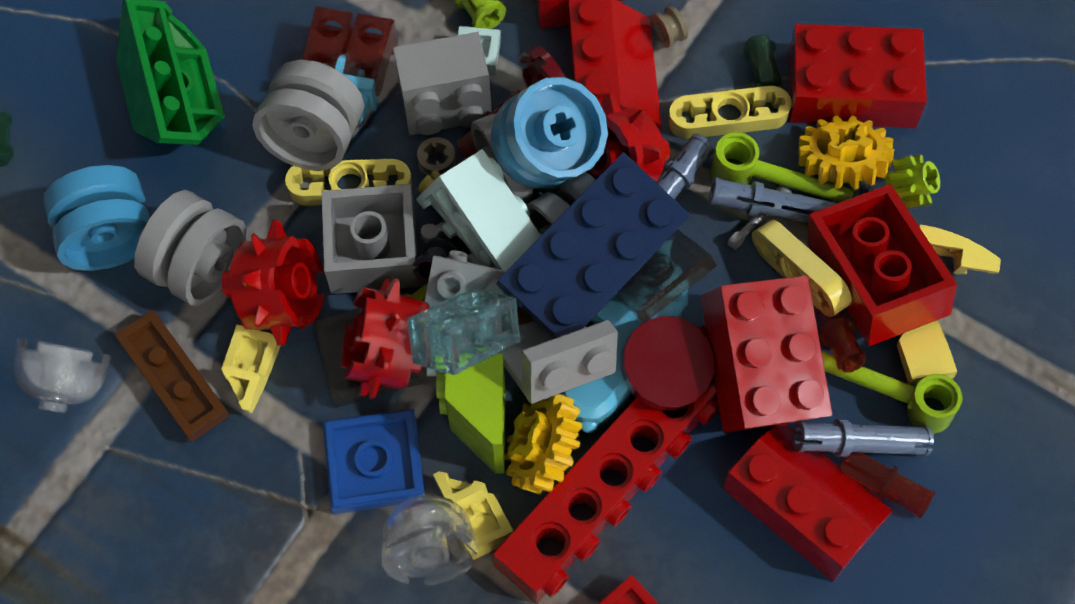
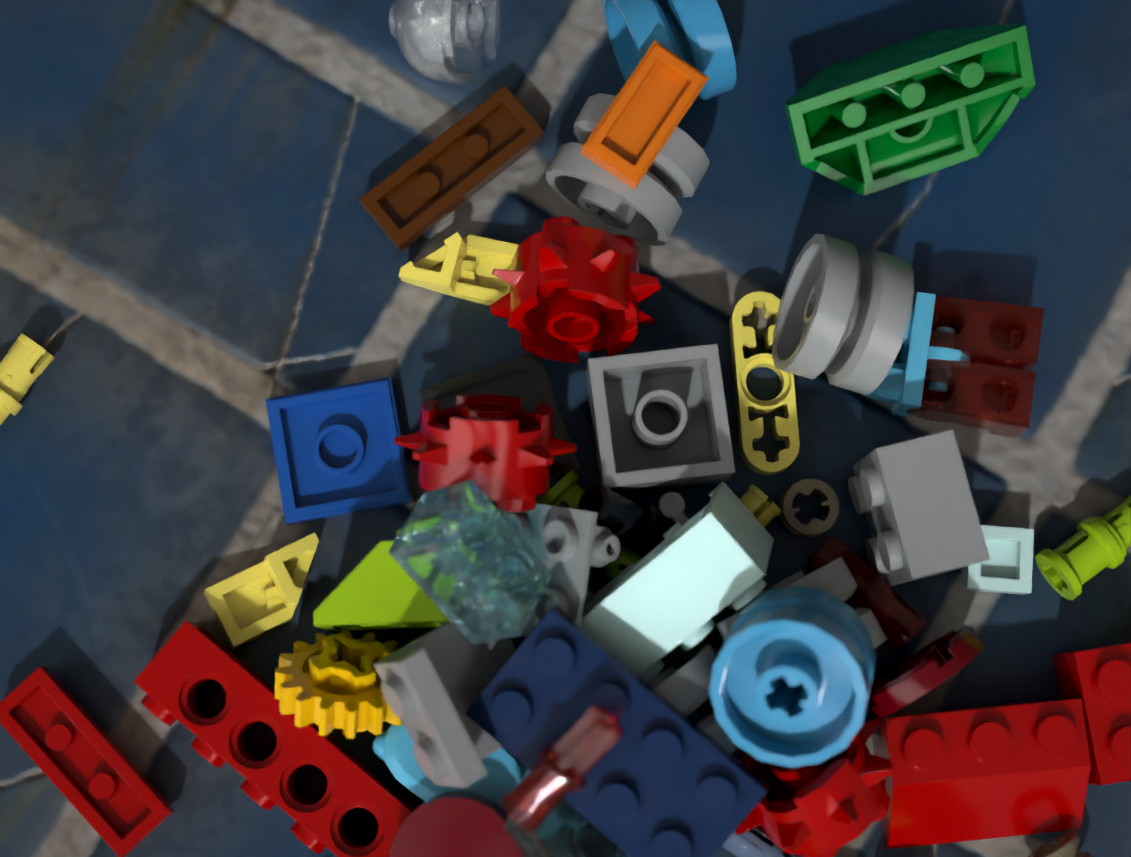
camera: 80 degrees right, 15 degrees up
(158, 213) = (644, 115): none -> orange tile
(427, 539) = (219, 530): clear cylinder -> none
(604, 269) = (563, 767): none -> clear red axle

